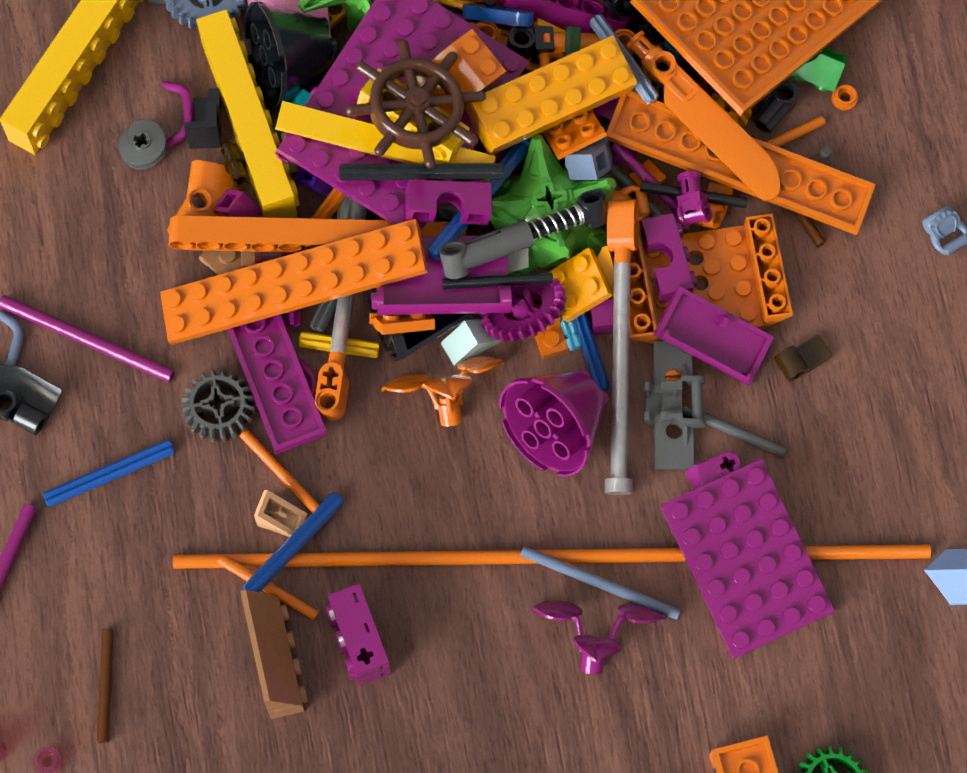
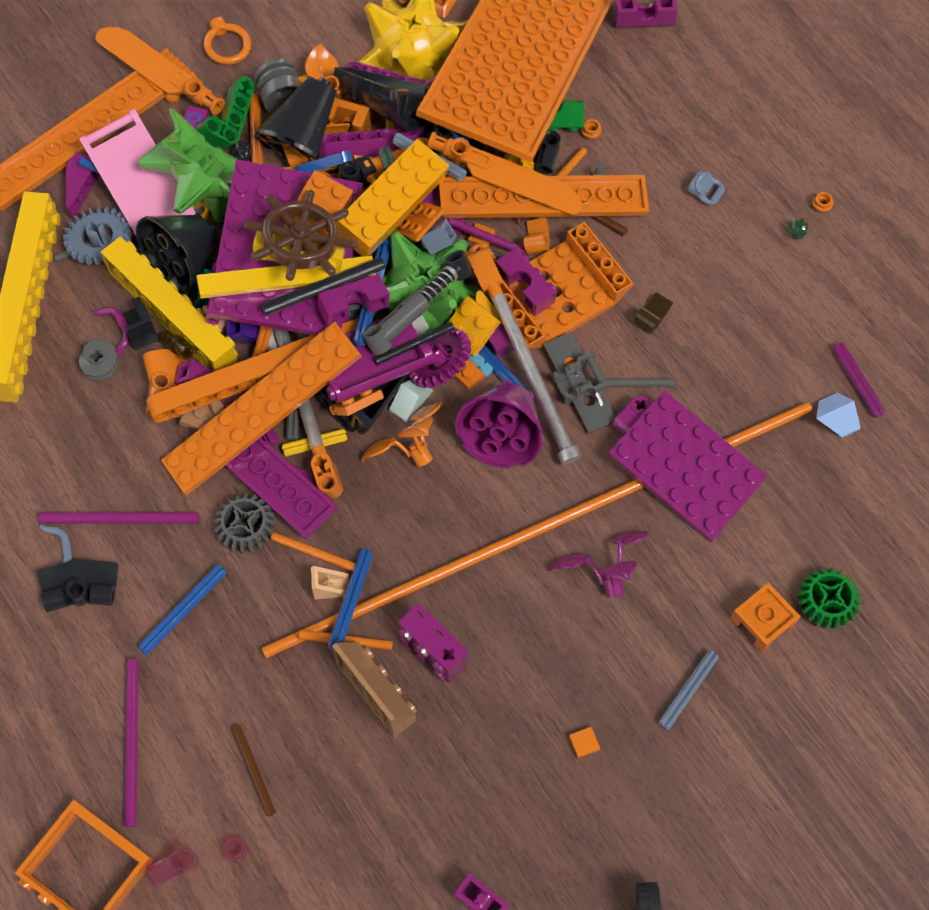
camera: 25 degrees left, 5 degrees down
(599, 582) = (589, 528): sand blue piece -> none
(674, 191) = (521, 232): black piece -> none
(693, 203) = (525, 236): magenta connector -> none
(713, 335) = (585, 321): magenta container -> none

